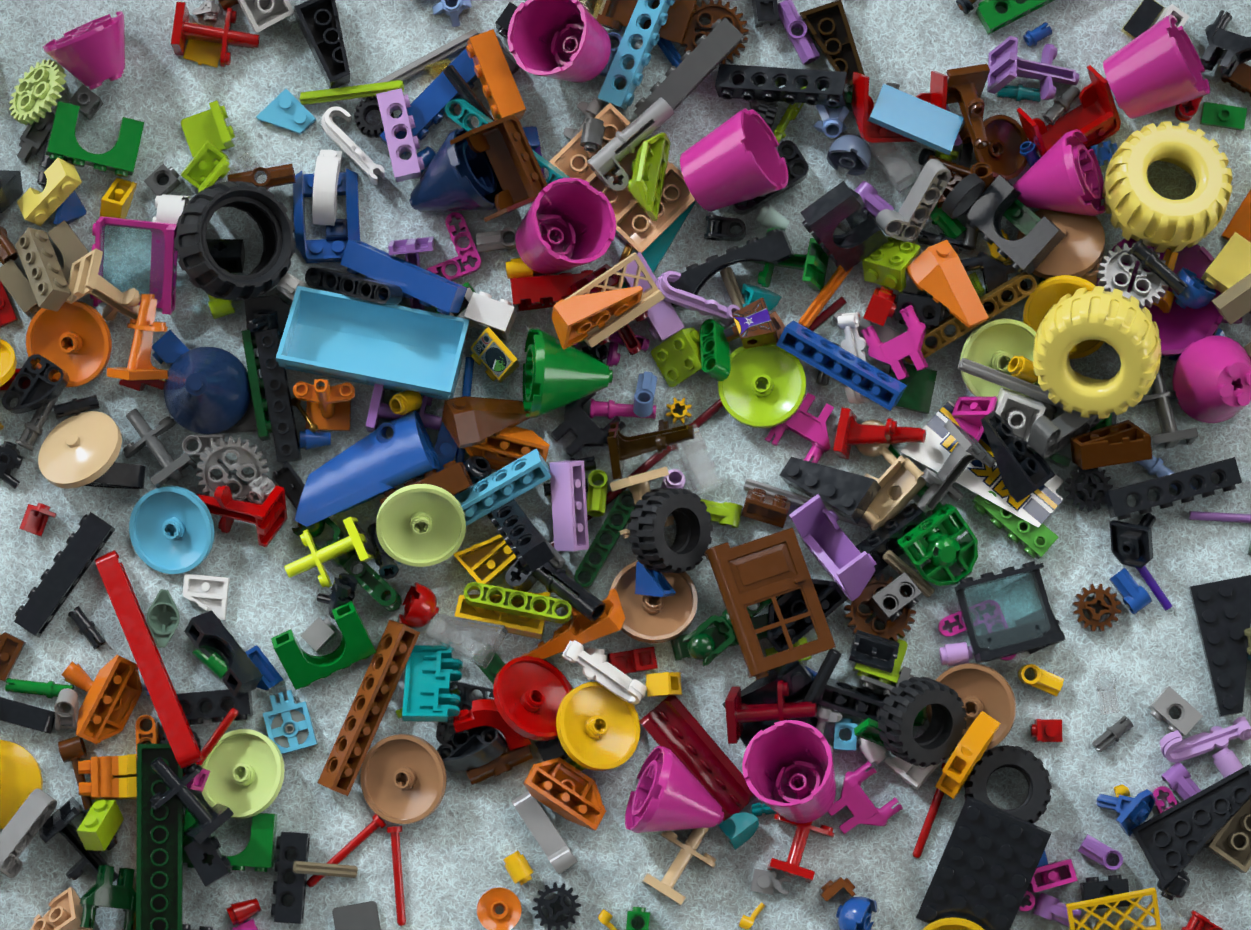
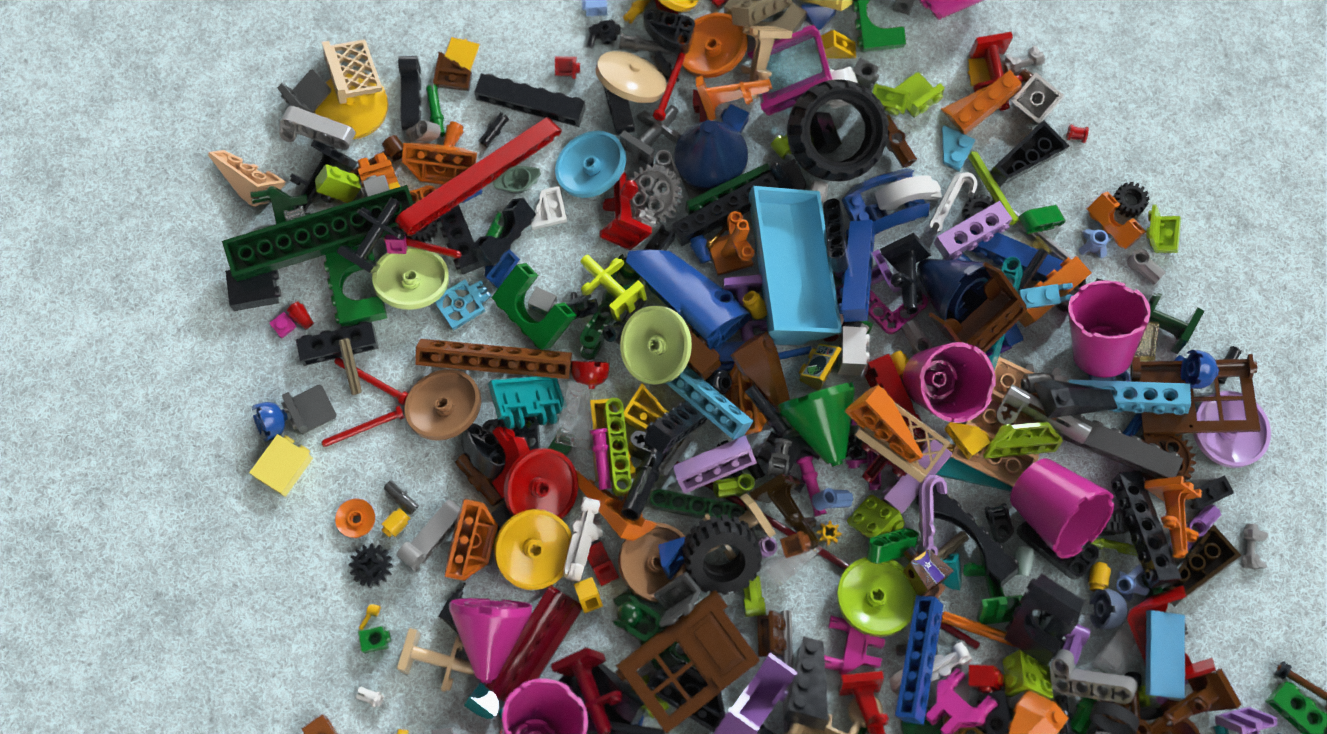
camera: 65 degrees right, 10 degrees down
(124, 782) = (374, 185): none -> light grey brick
(126, 883) = (296, 213): none -> clear bush
(138, 431) = (659, 114): none -> red bar
(208, 872) = (322, 274): black brick -> none
(247, 70) = (979, 105): none -> orange wedge
(403, 220) = (903, 257): none -> black piece
(407, 54) = (1041, 219): none -> green beam
(490, 854) = (401, 497): none -> dark grey axle
(502, 90) = (1044, 295): none -> medium azure hinge
(515, 621) = (600, 448): none -> dark pink pin
(540, 426) = (773, 419): none -> black pin
(587, 435) = (779, 461): none -> dark grey connector
(624, 106) = (1069, 399): none -> black wedge
(631, 228) = (968, 438): none -> yellow slope
(633, 839) = (445, 613): none -> black piece
(686, 450) = (795, 544): none -> dark orange bracket
(702, 590) = (677, 598): none -> dark grey bracket
(759, 41) = (1174, 493): none -> orange piece
(814, 149) = (1099, 576): none -> yellow brick

